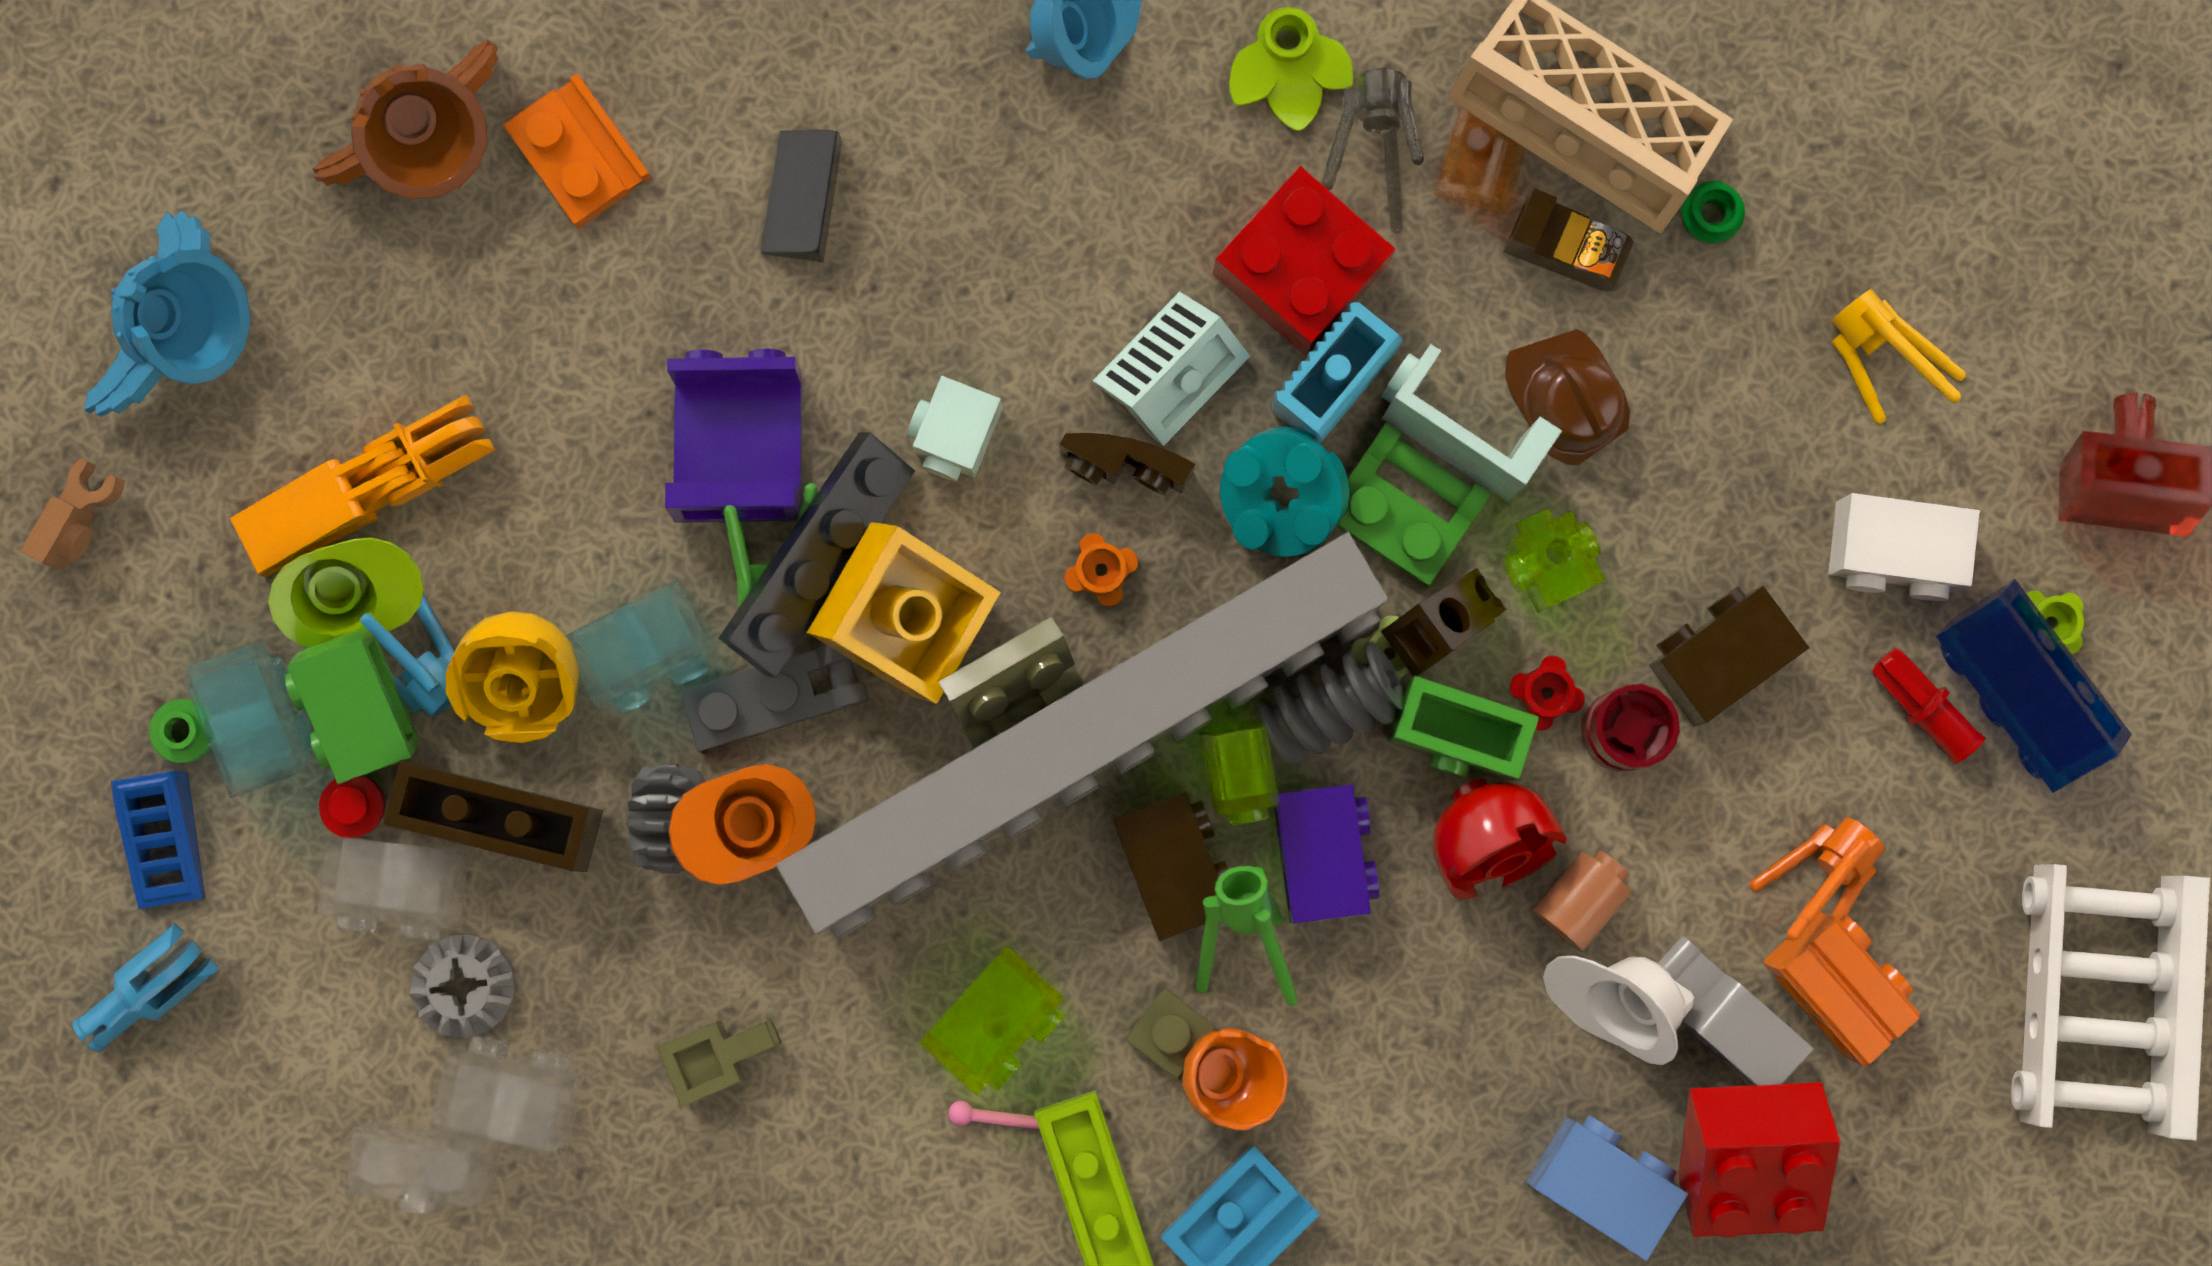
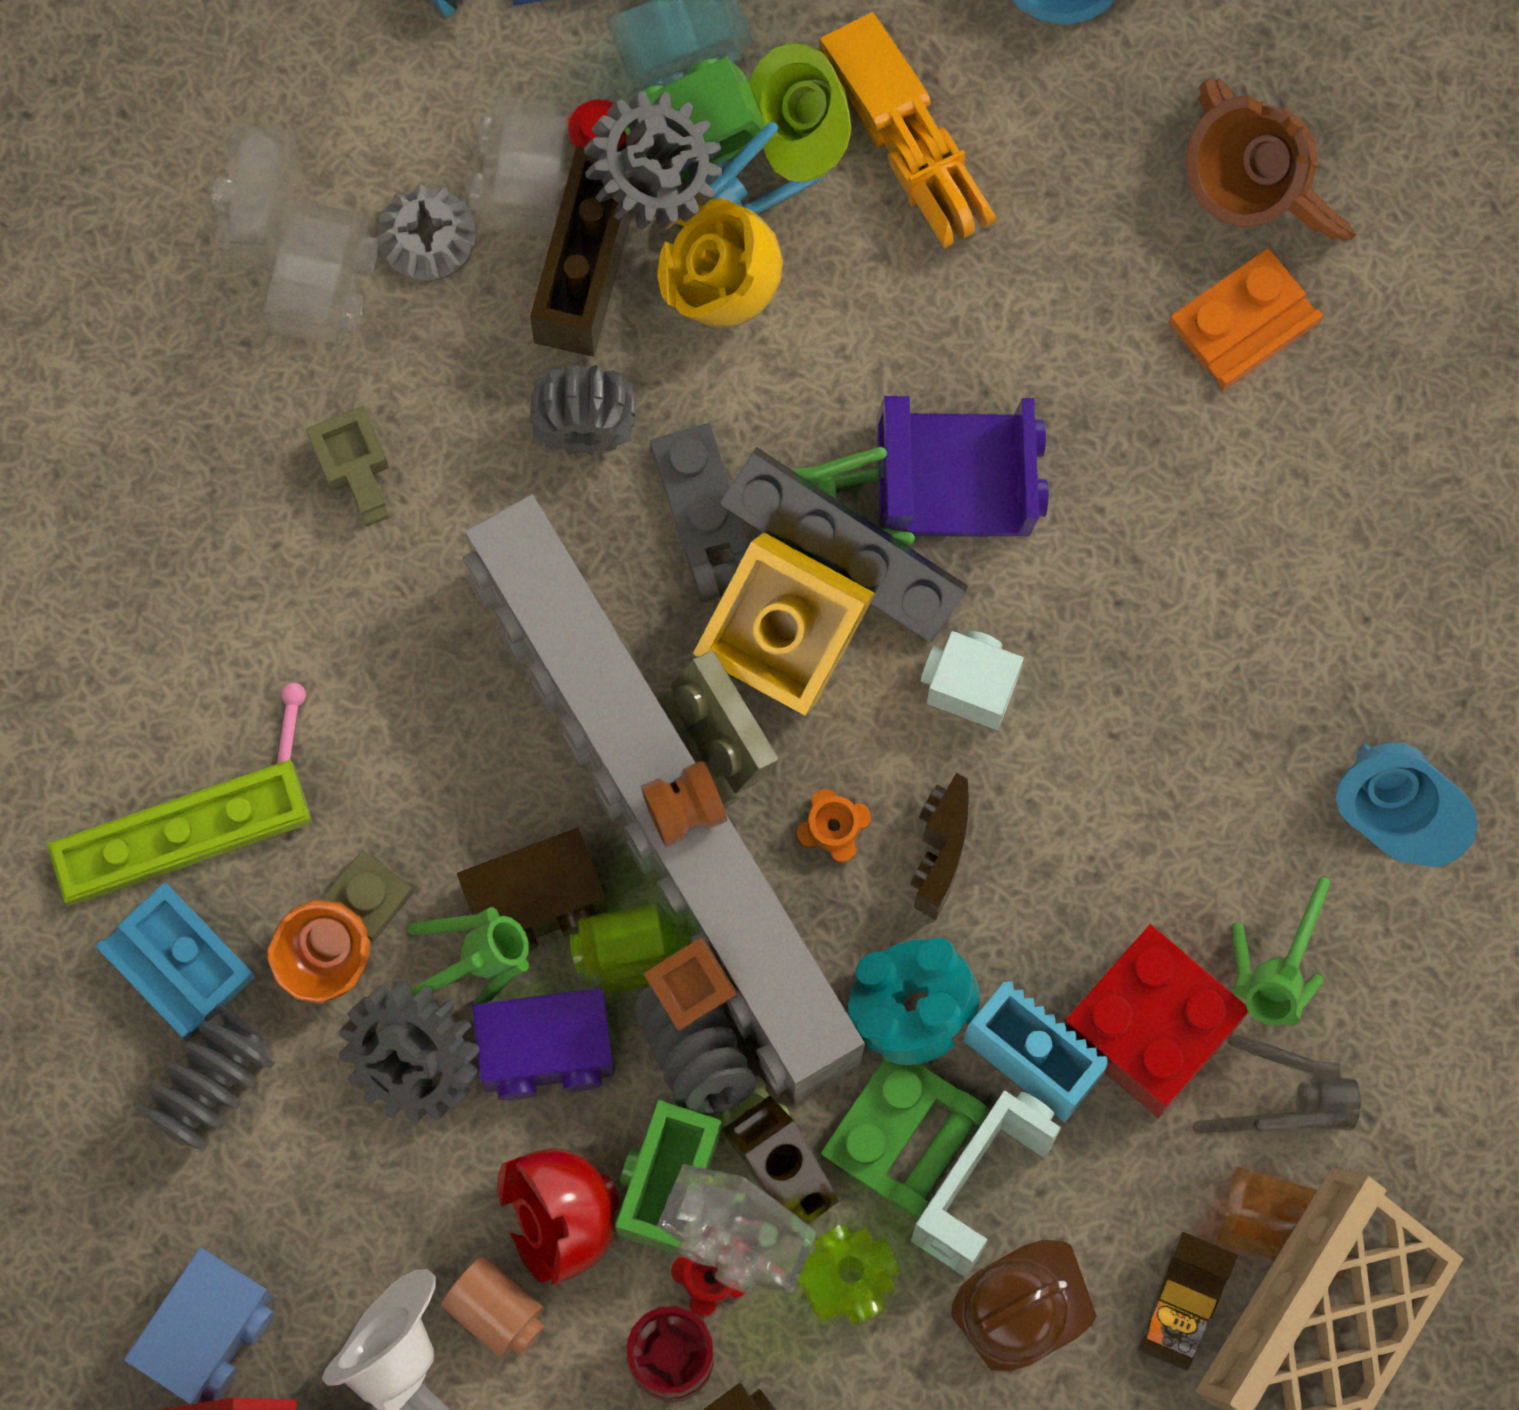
camera: 90 degrees right, 10 degrees down
(434, 734) = (640, 182): none -> dark grey gear
(642, 647) = (751, 385): clear light blue brick -> none
(741, 824) = (575, 471): orange piece -> none
(802, 194) = (1209, 532): black slope -> none
(994, 1020) = (382, 721): clear neon green brick -> none
(1113, 705) = (684, 803): none -> dark orange wheel
(1173, 366) = (1041, 894): light aqua panel -> none
(1275, 137) = (1276, 988): none -> bright green plant
(1289, 78) = (1352, 1017): lime plate -> none
(1291, 701) = (690, 983): none -> dark orange tile
(1339, 986) = (409, 1052): none -> dark grey gear
(1365, 1188) = (207, 1079): none -> dark grey piece
(1530, 661) = (736, 1229): none -> clear brick

